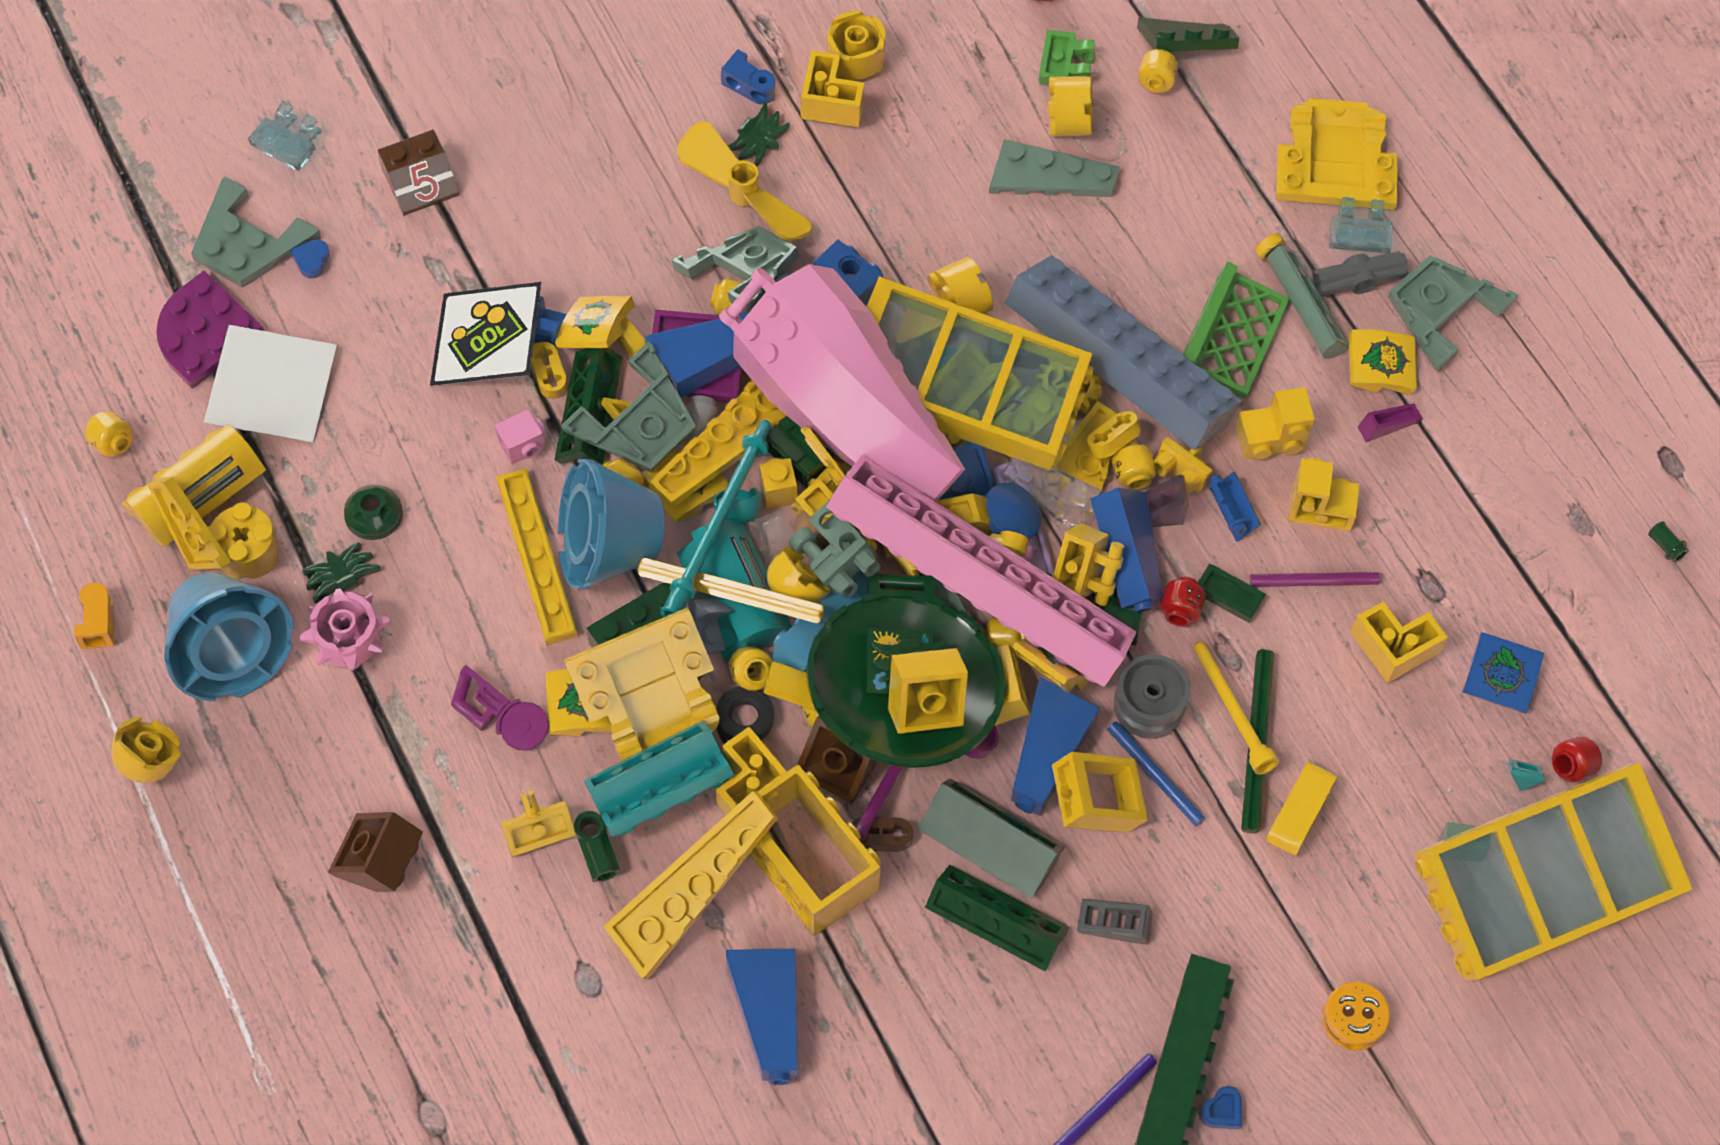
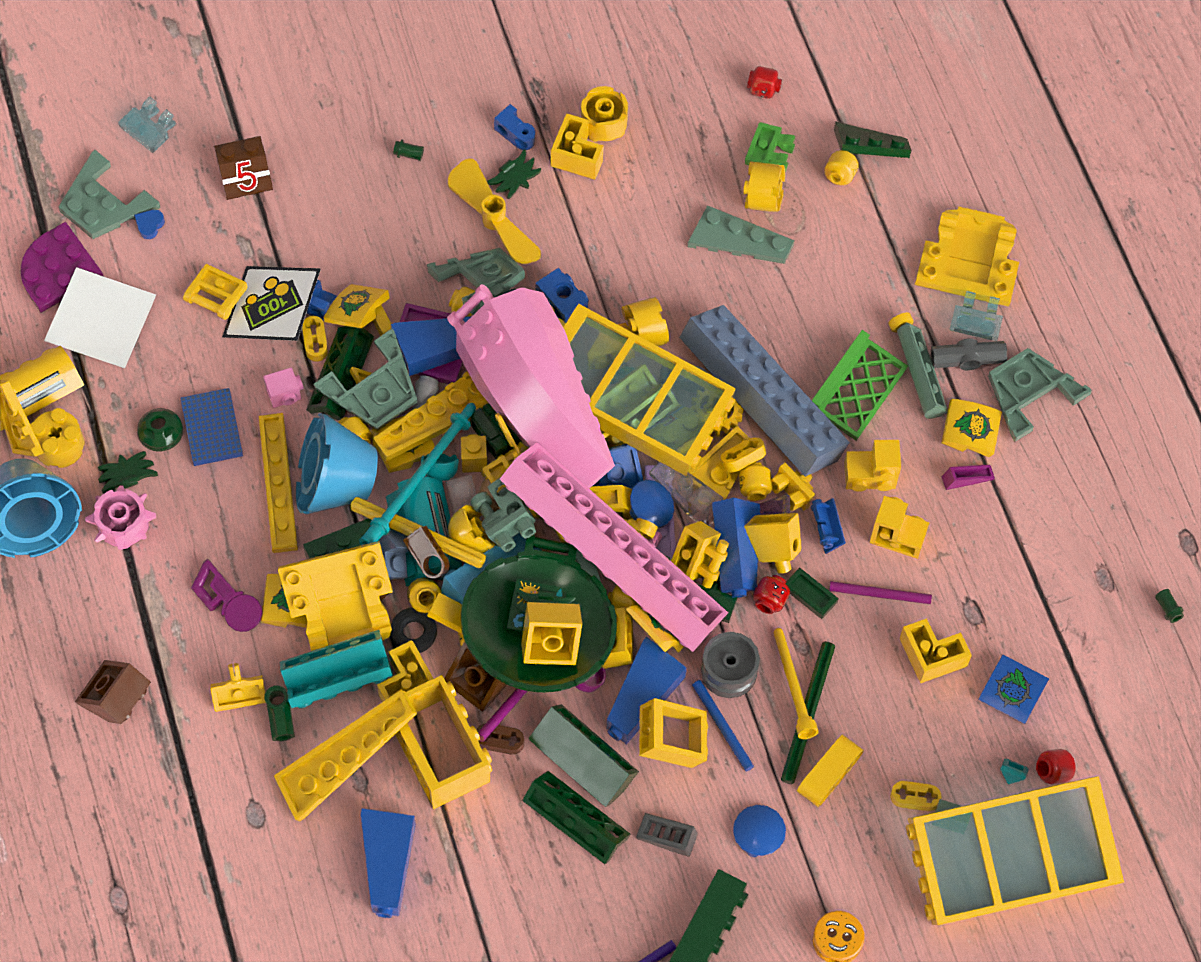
camera: 10 degrees right, 0 degrees up
(414, 321) = (219, 285): none -> yellow plate
(438, 499) = (211, 427): none -> blue tile
(620, 123) = (408, 150): none -> dark green pin
(742, 606) = (423, 547): none -> piece
(1176, 531) = (775, 539): none -> yellow torso
(1228, 897) = (759, 830): none -> blue dish
(1412, 815) = (915, 789): none -> yellow beam

